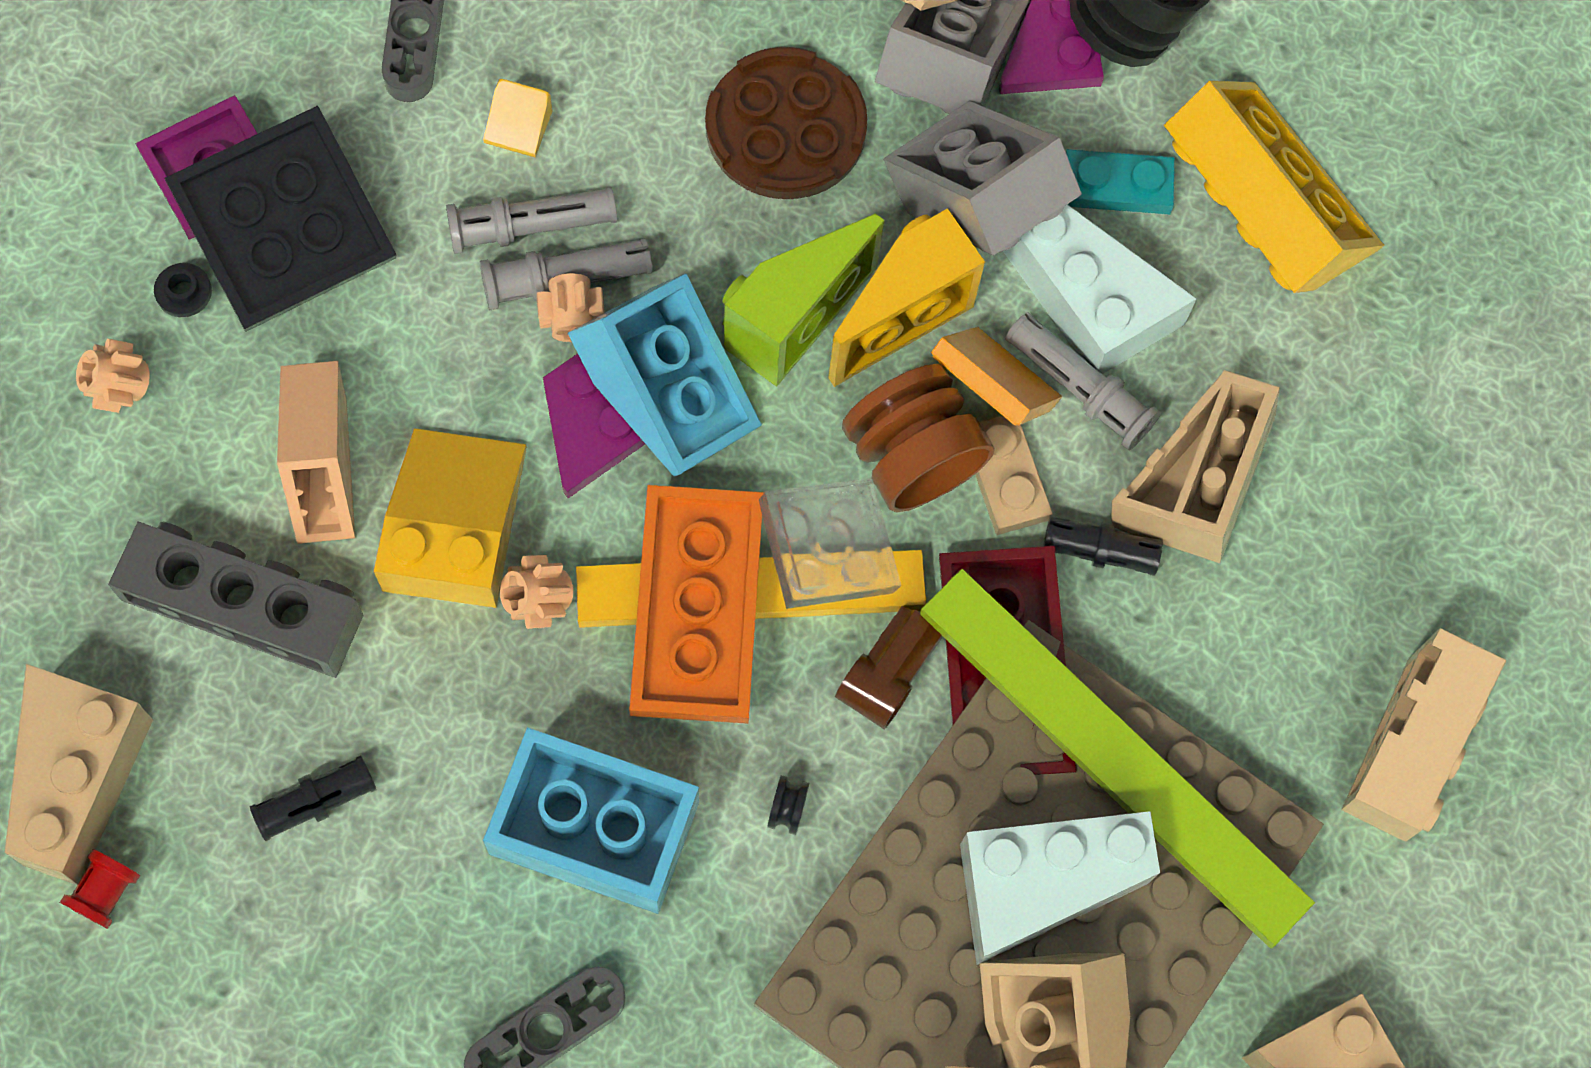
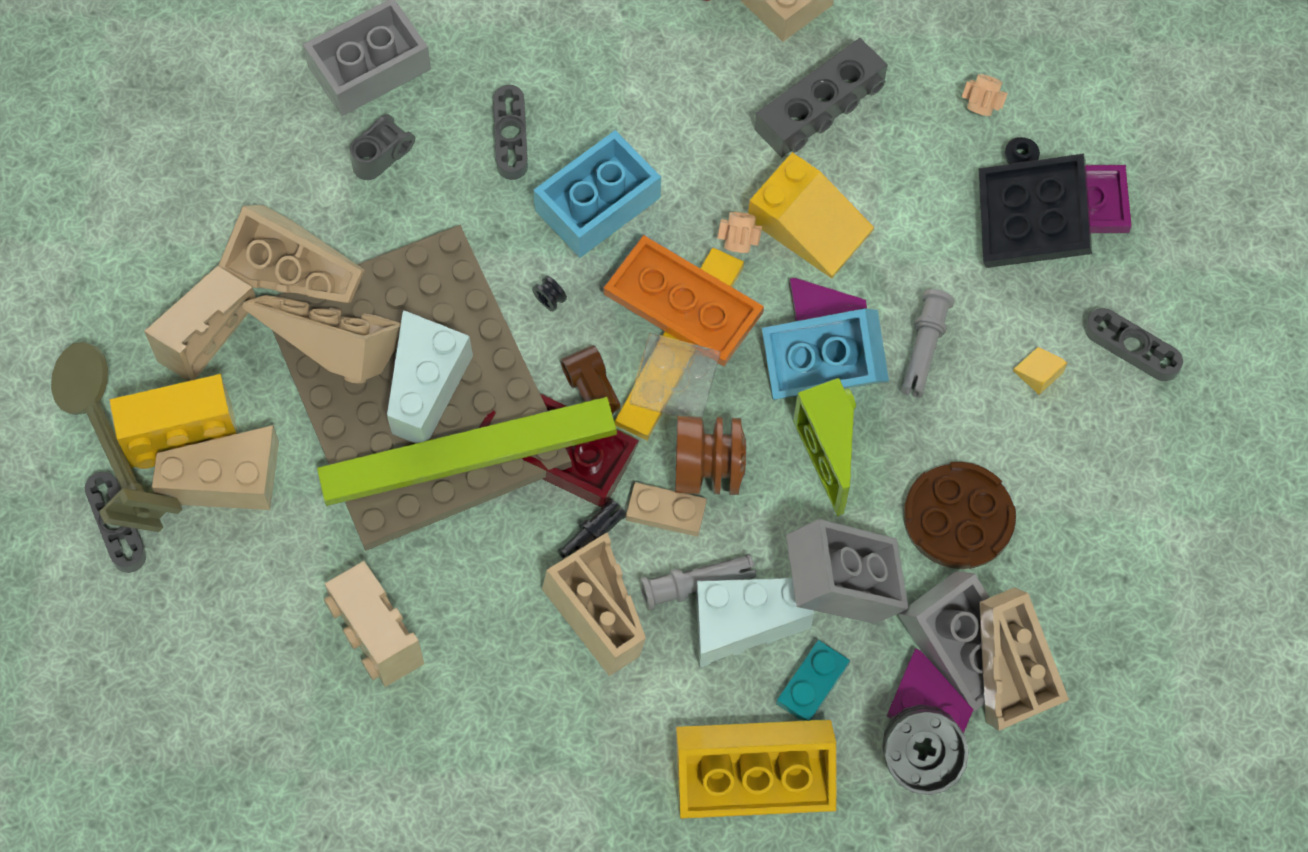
camera: 125 degrees right, 5 degrees down
(312, 798) = (694, 87): black pin -> none
(315, 452) = (885, 166): light nougat slope -> none
(504, 221) = (975, 327): light grey pin -> none
(568, 304) = (899, 330): light nougat gear -> none
(916, 289) = (799, 488): yellow slope -> none
(995, 375) = (722, 522): light orange tile -> none

